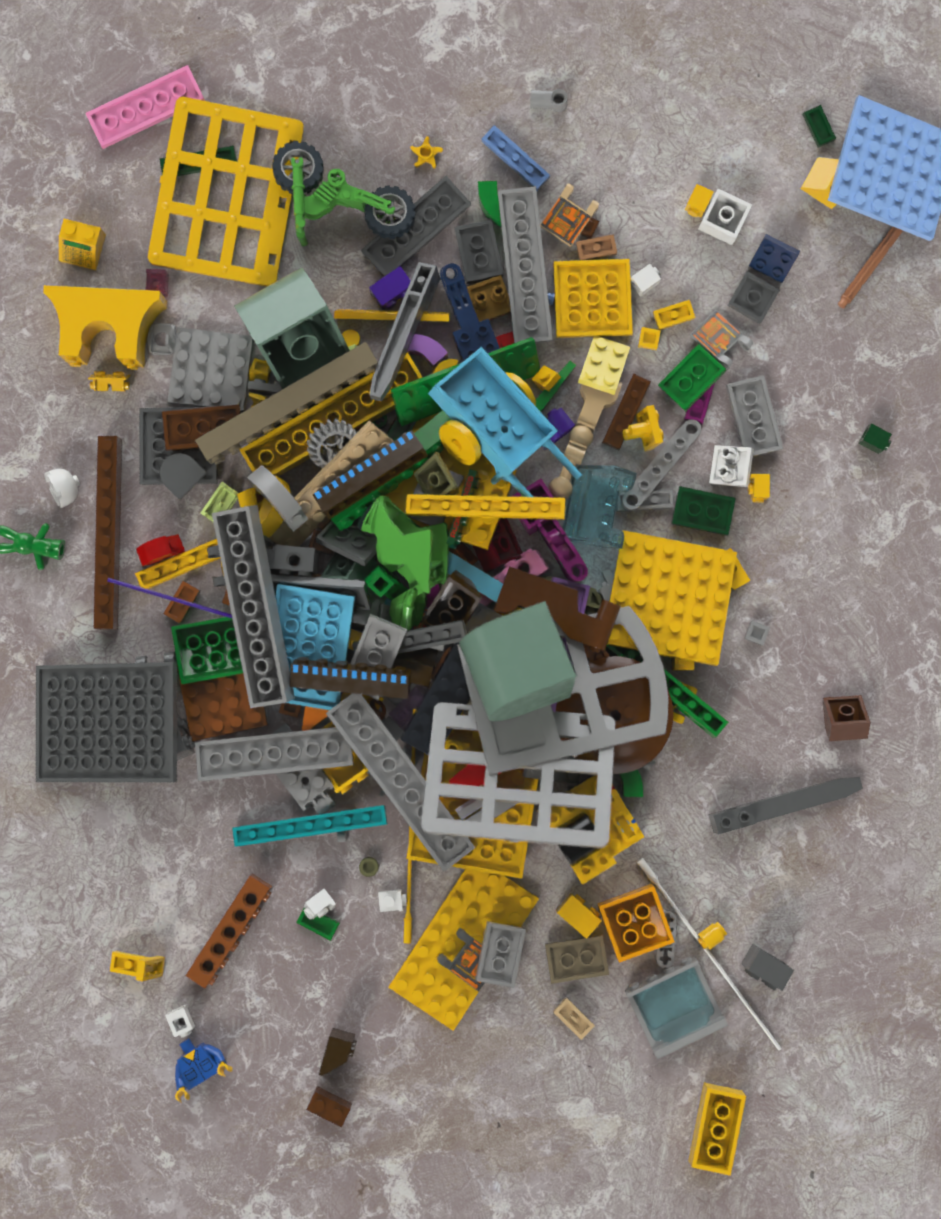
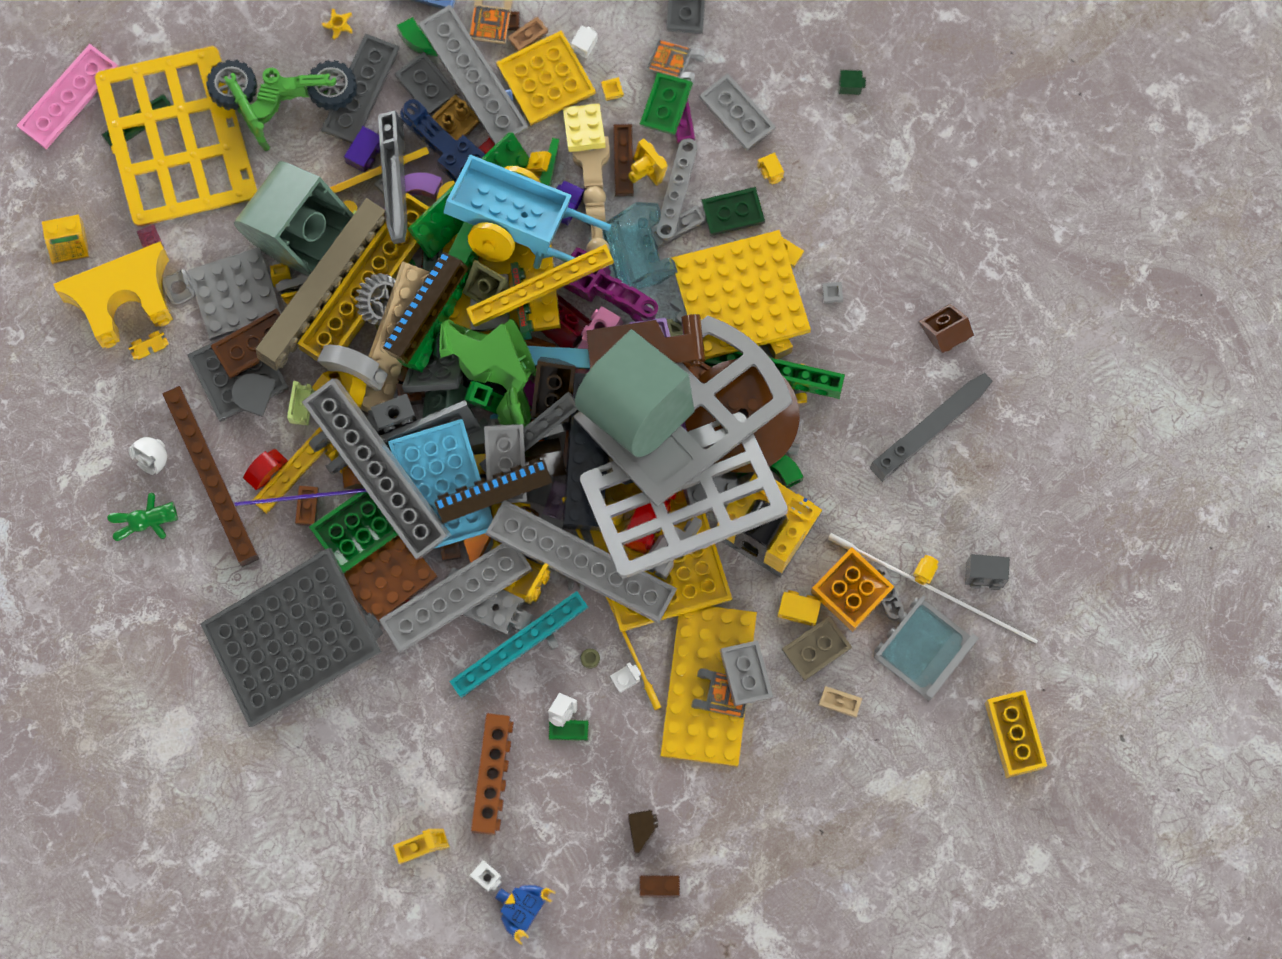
camera: 25 degrees left, 10 degrees down
(674, 315) = (624, 59): yellow plate -> none
(731, 466) = (737, 161): white plate -> none

